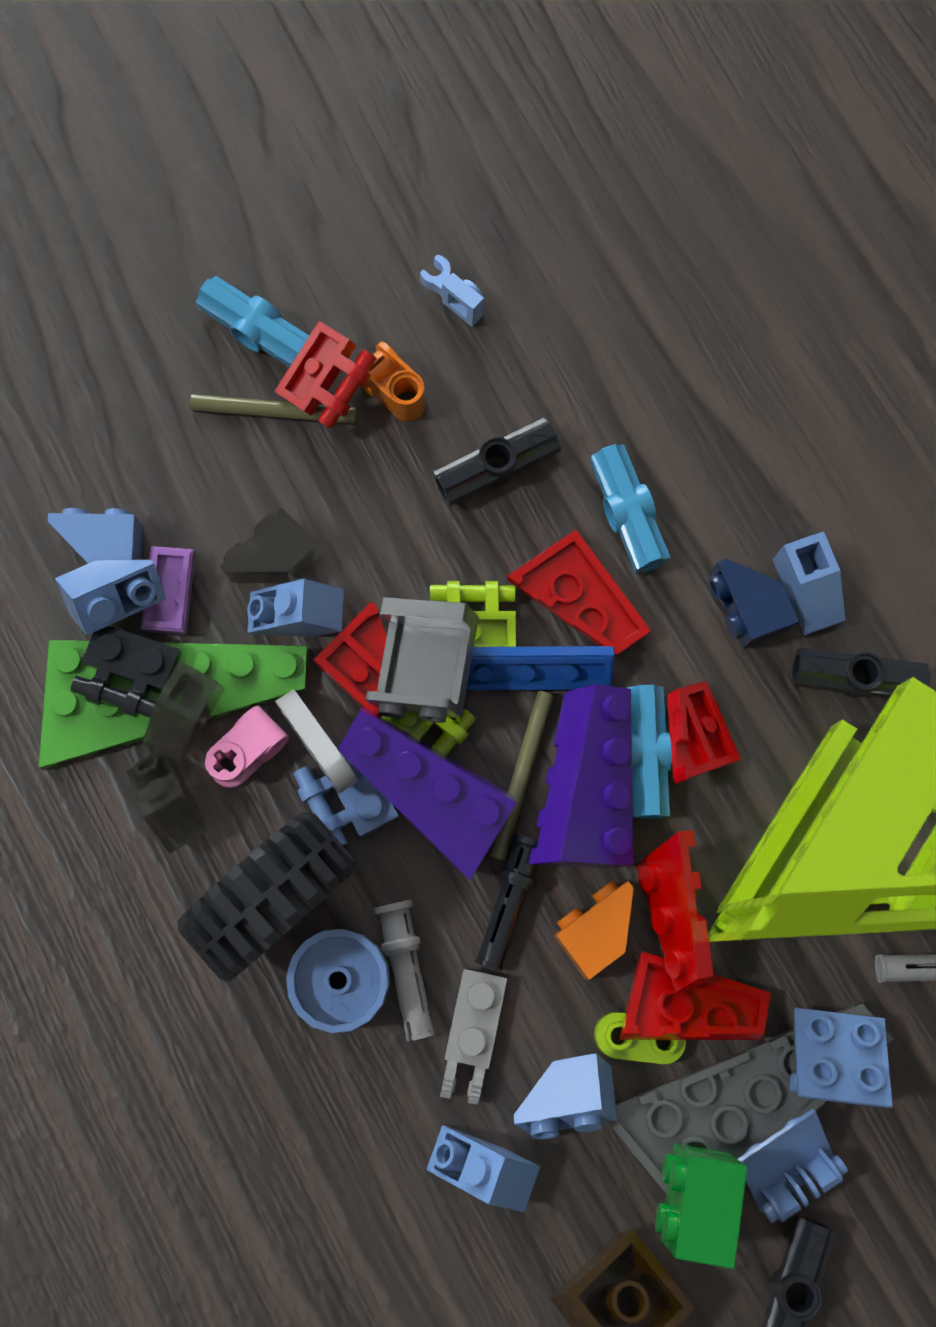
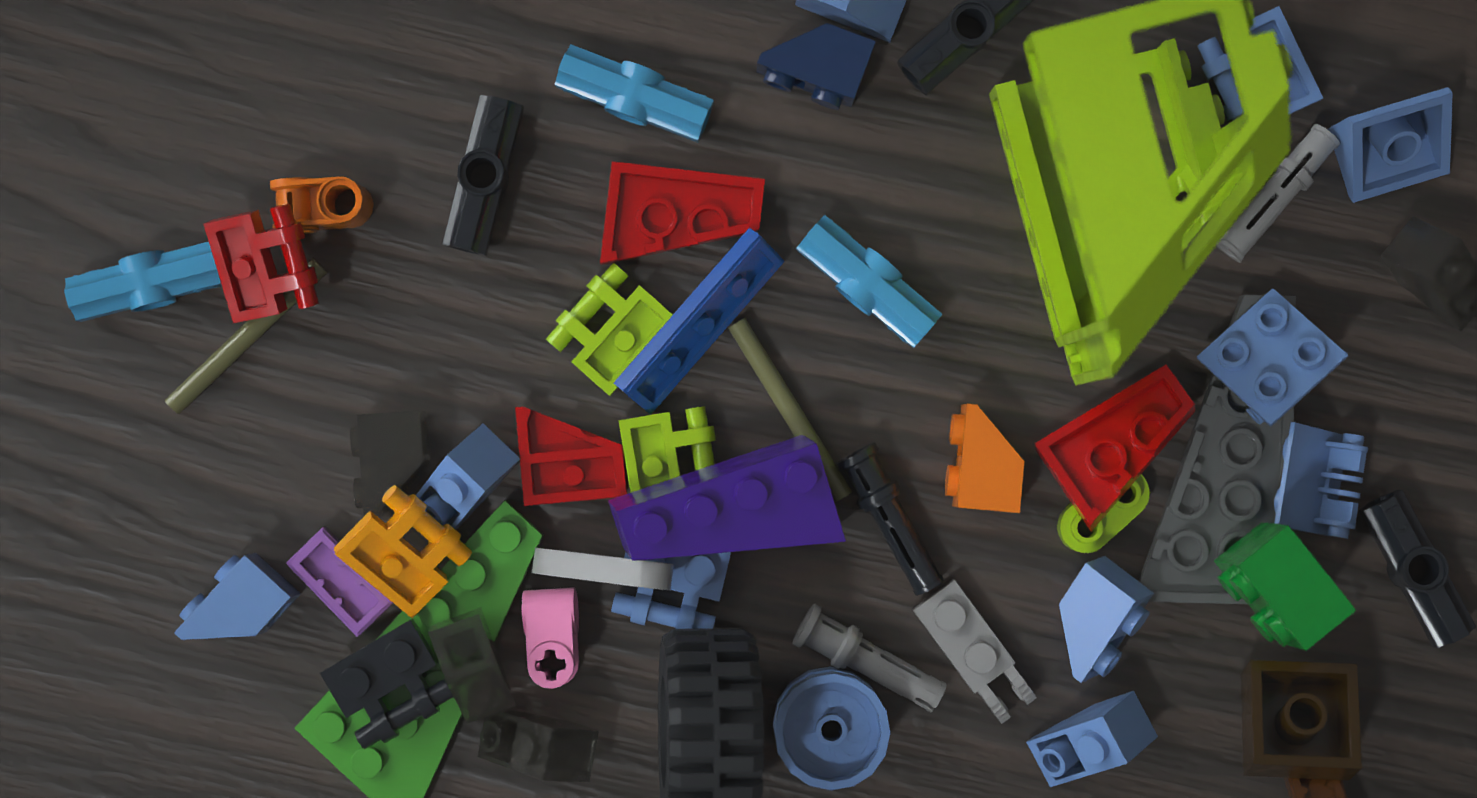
camera: 50 degrees left, 10 degrees up
(109, 591) = (301, 639): medium blue slope -> none
(205, 607) = (391, 563): none -> light orange plate
(425, 659) = (616, 409): panel -> none
(458, 295) = (290, 64): light blue plate -> none
(590, 783) = (852, 359): dark purple wedge -> none
(671, 898) = (1012, 377): red wing -> none
(698, 733) = (893, 222): red wing -> none

